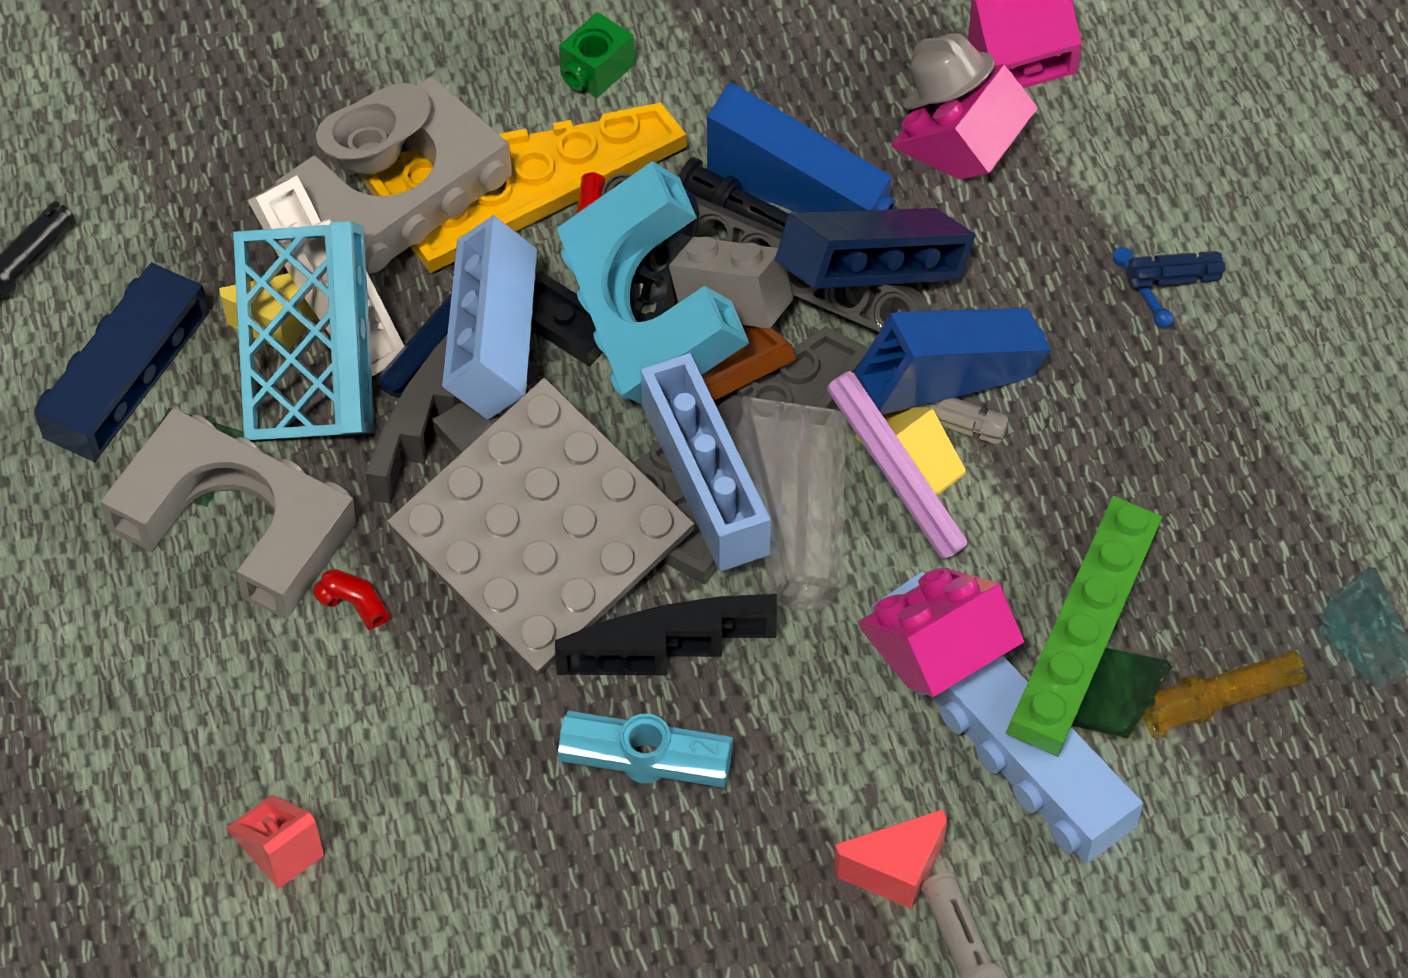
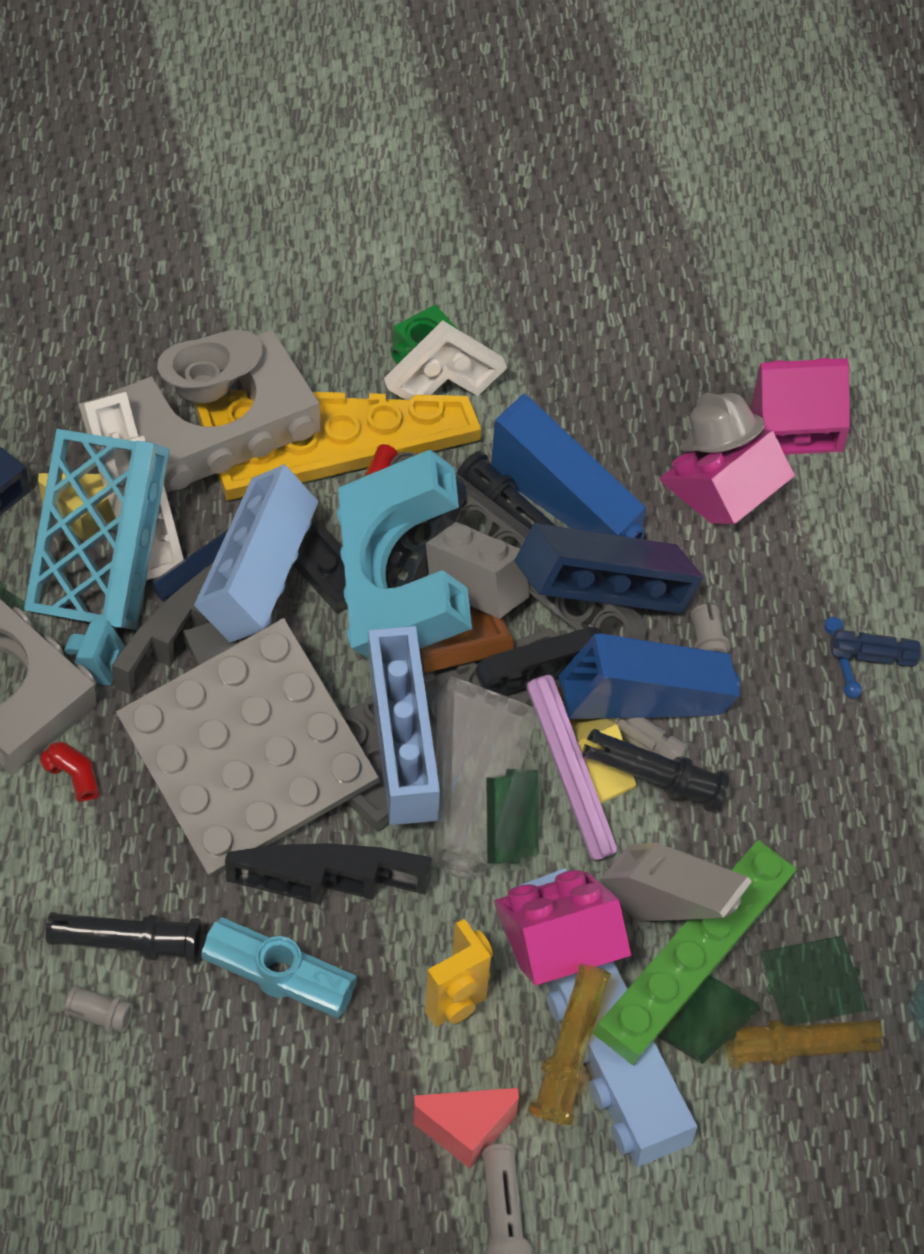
camera: 10 degrees right, 0 degrees up
(341, 462) = (96, 650): none -> medium azure tile
(463, 840) = (99, 1009): none -> light grey pin
(491, 752) = (148, 936): none -> black pin
(627, 63) = (444, 356): none -> white plate
(812, 371) = (514, 668): none -> black beam
(847, 712) = (461, 979): none -> yellow bracket
(850, 530) = (512, 816): none -> clear green piece
(986, 778) = (565, 1067): none -> clear yellow pin
(993, 289) = (709, 629): none -> light grey pin
(1008, 449) = (676, 776): none -> black pin
(1046, 558) = (673, 885): none -> light grey slope
(1213, 628) = (813, 981): none -> clear green piece

